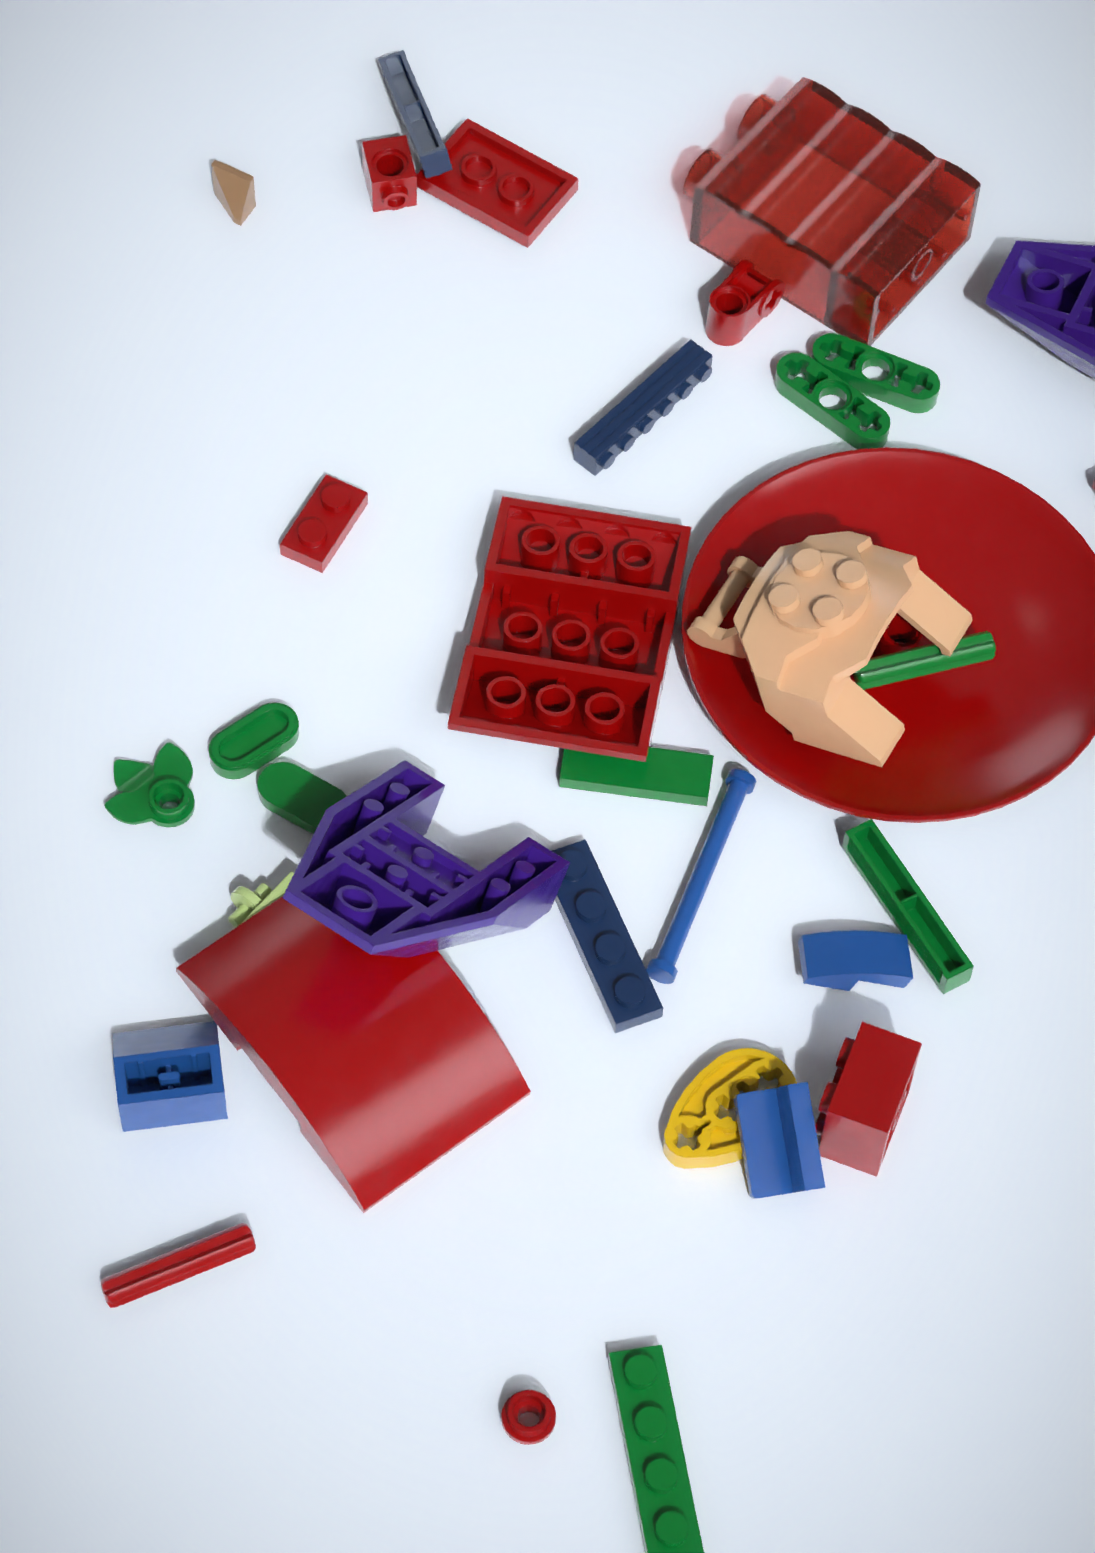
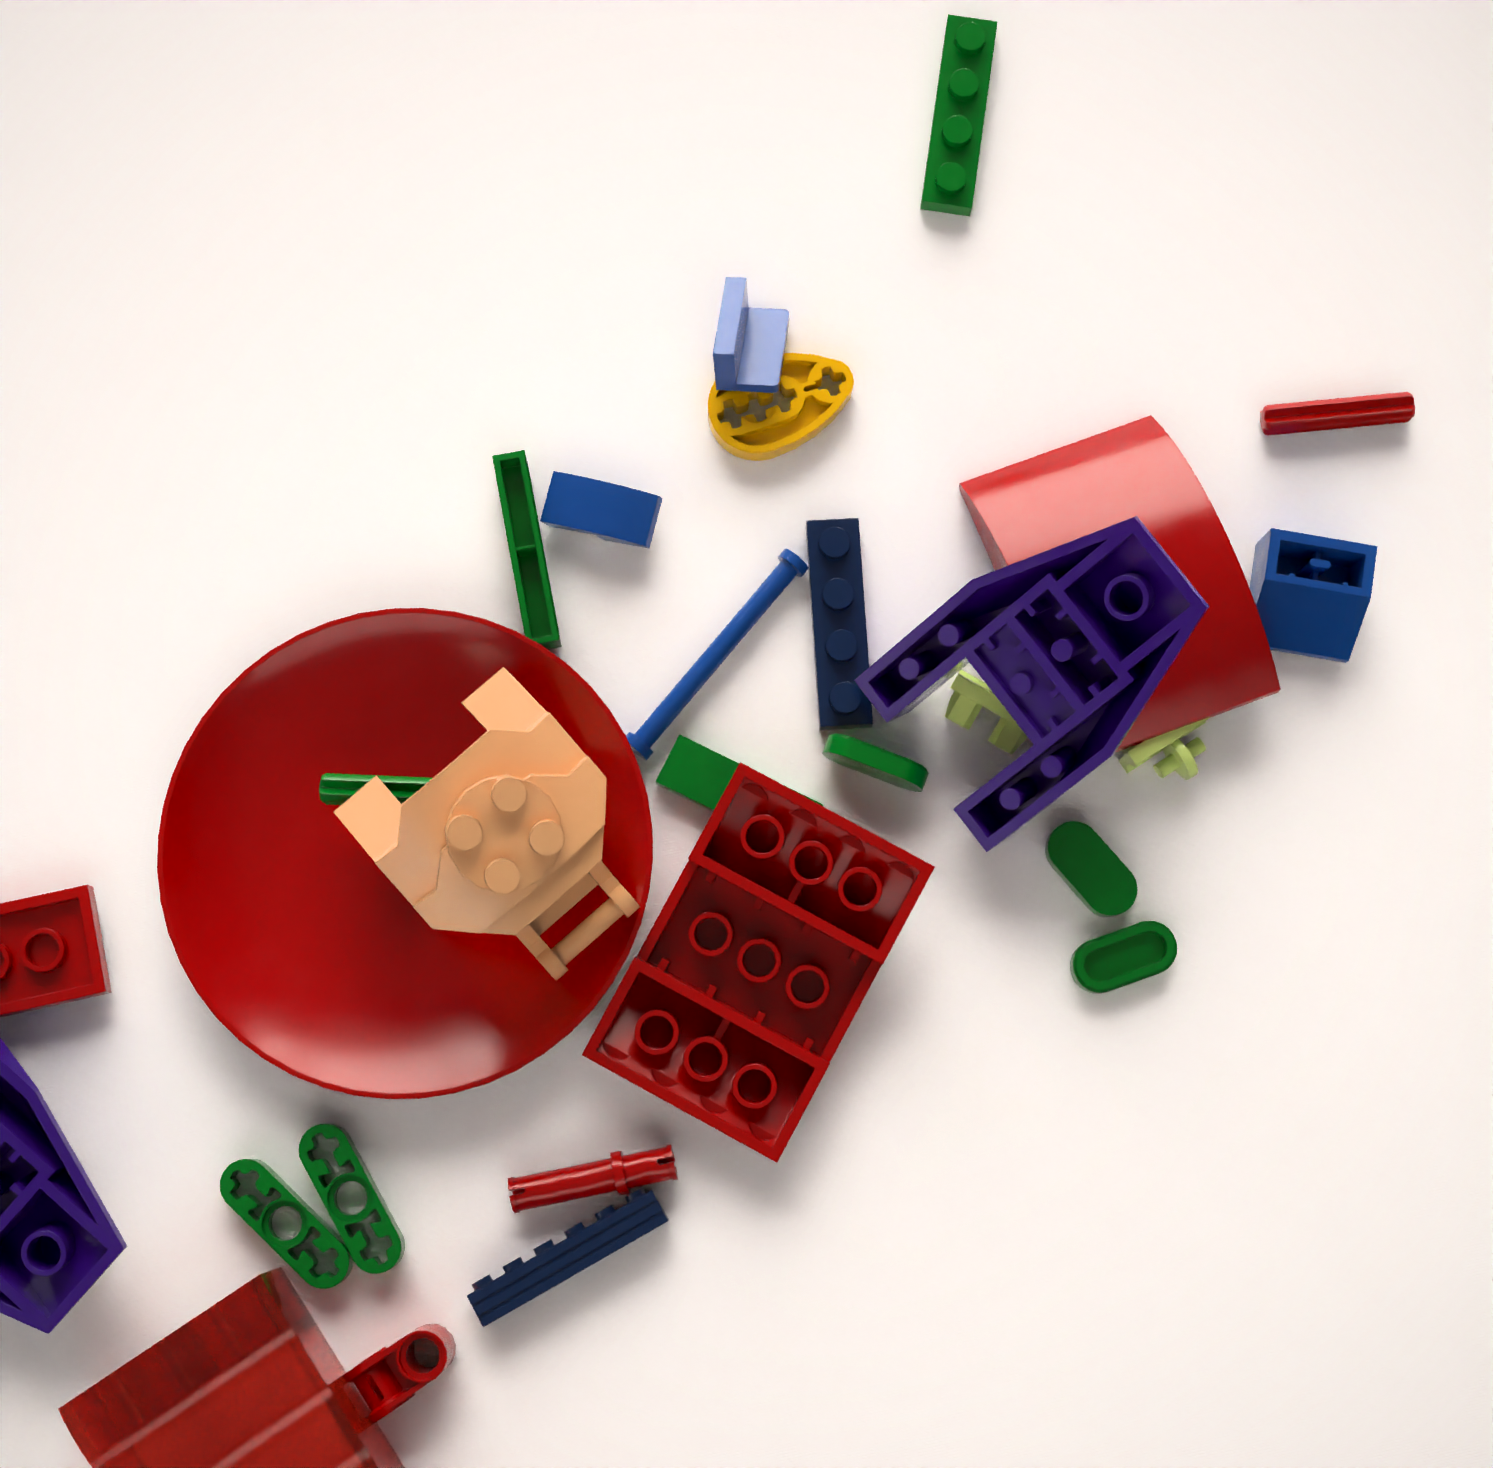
camera: 165 degrees left, 20 degrees up
(149, 787) = (1248, 935): green plate -> none
(324, 523) = (974, 1213): red plate -> none
(524, 818) = (875, 762): none -> green tile
(533, 1402) = (1063, 165): red plate -> none
(629, 468) = (593, 1178): none -> red pin
(866, 1097) = (653, 344): red brick -> none

